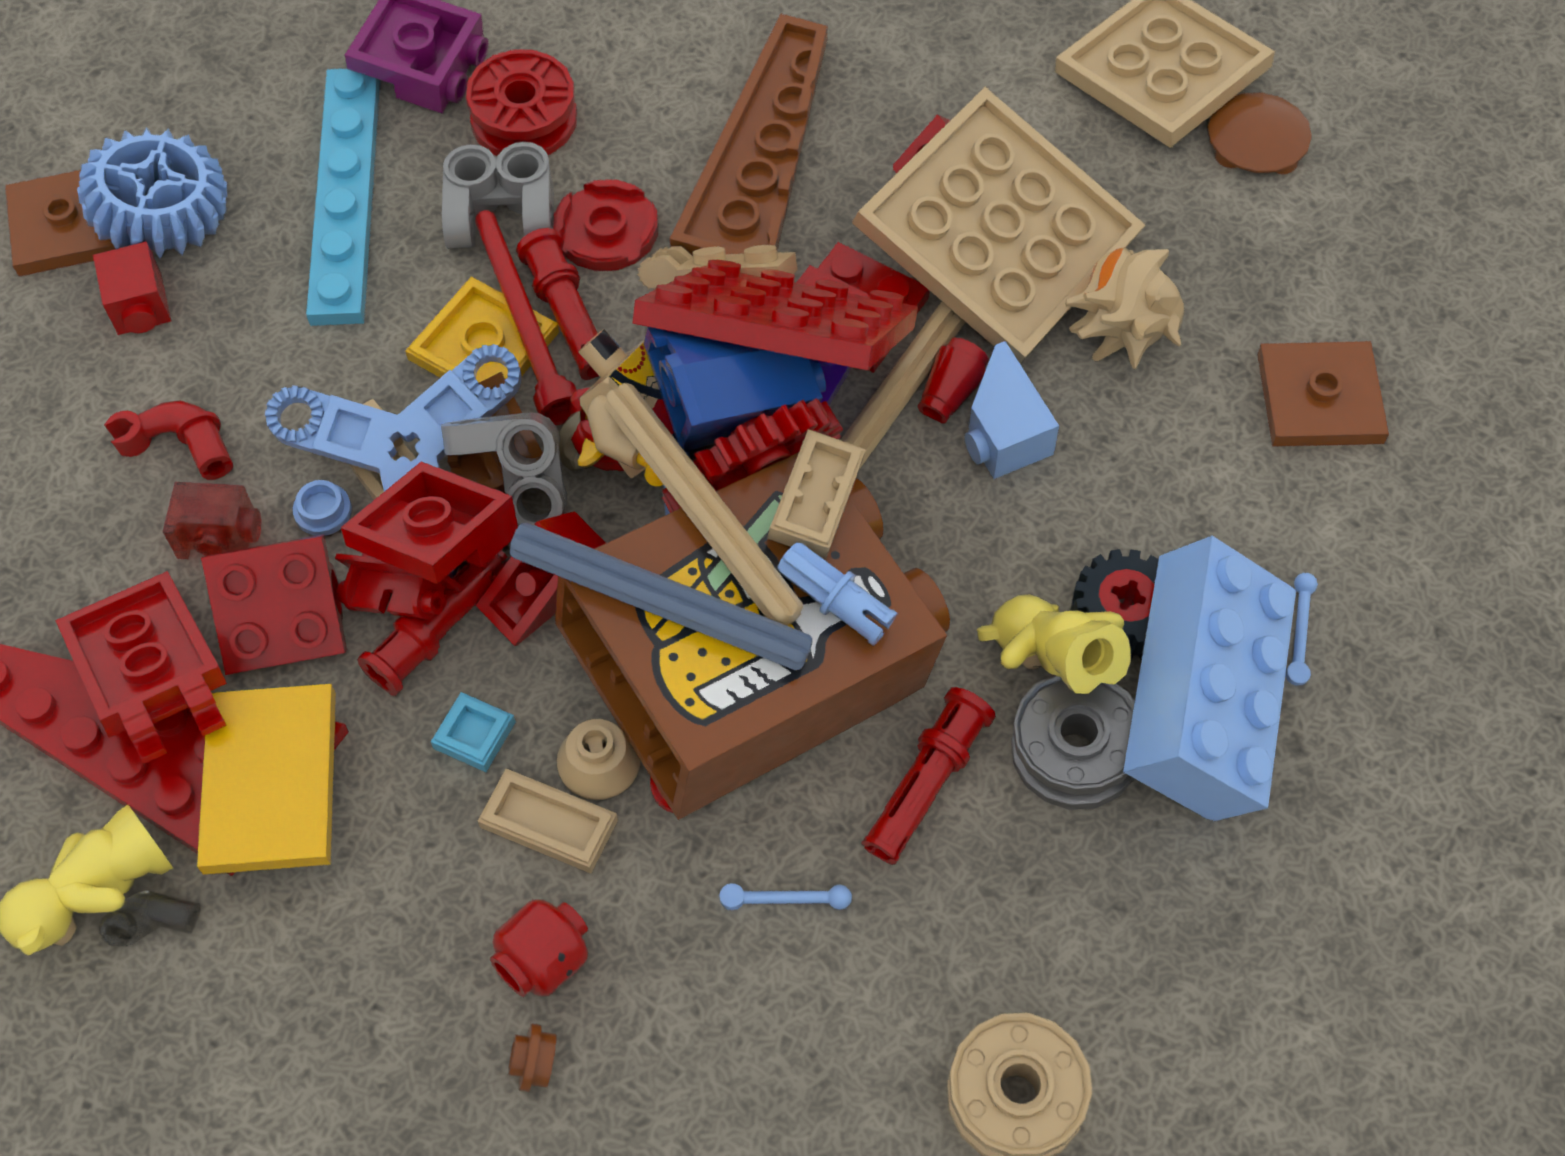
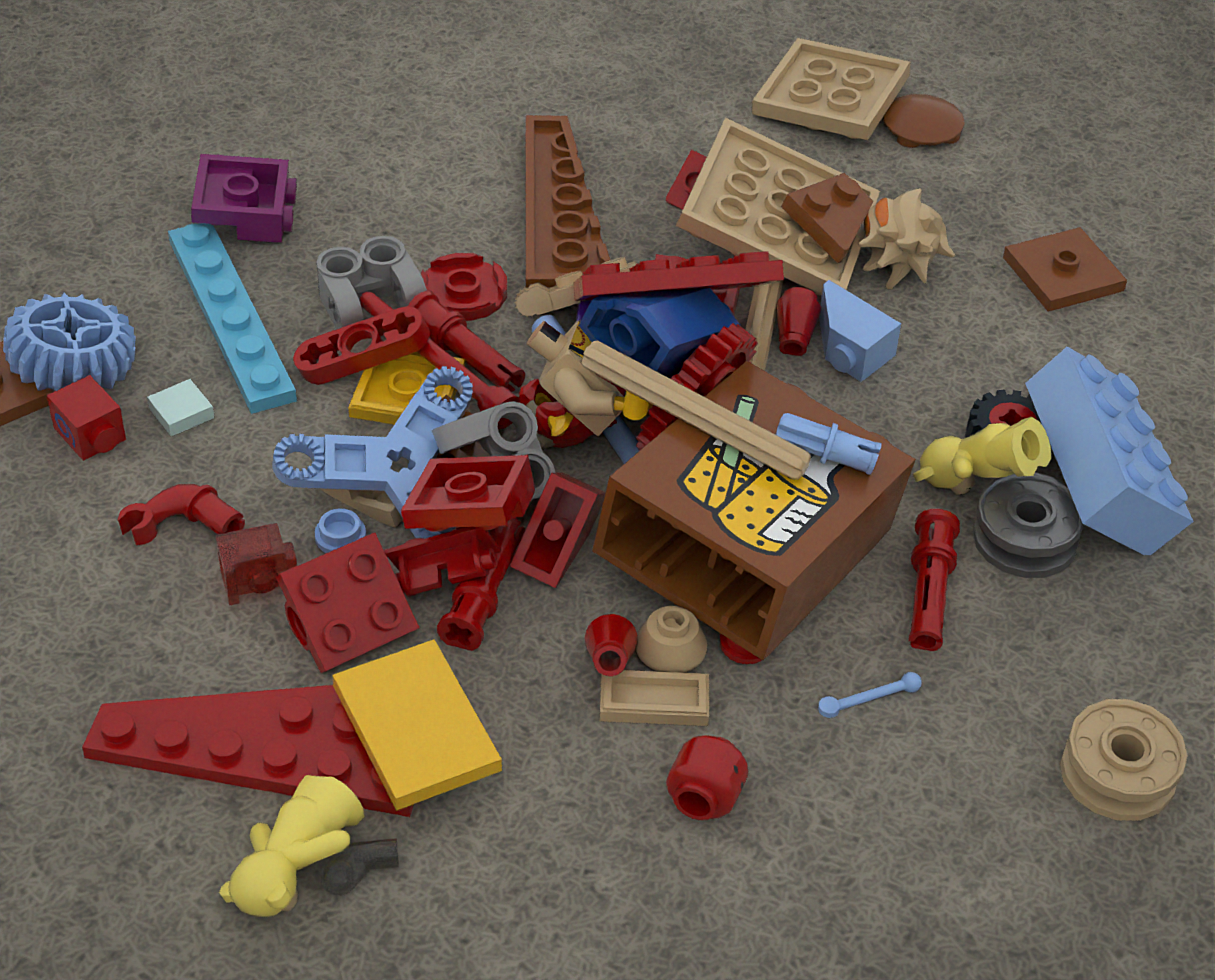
camera: 25 degrees left, 15 degrees down
(144, 662) = (261, 671): red tile -> none
(238, 299) = (180, 407): none -> light aqua tile
(466, 290) = (396, 345): none -> red beam
(473, 732) = (557, 654): medium azure tile -> none
(521, 100) = (348, 212): red wheel -> none
(522, 745) = (610, 643): none -> red cone
(532, 1058) = (744, 857): dark orange plate -> none
(661, 596) = (700, 474): sand blue axle -> none
(816, 493) = (774, 382): tan plate -> none
(1055, 247) = (830, 212): none -> dark orange wing

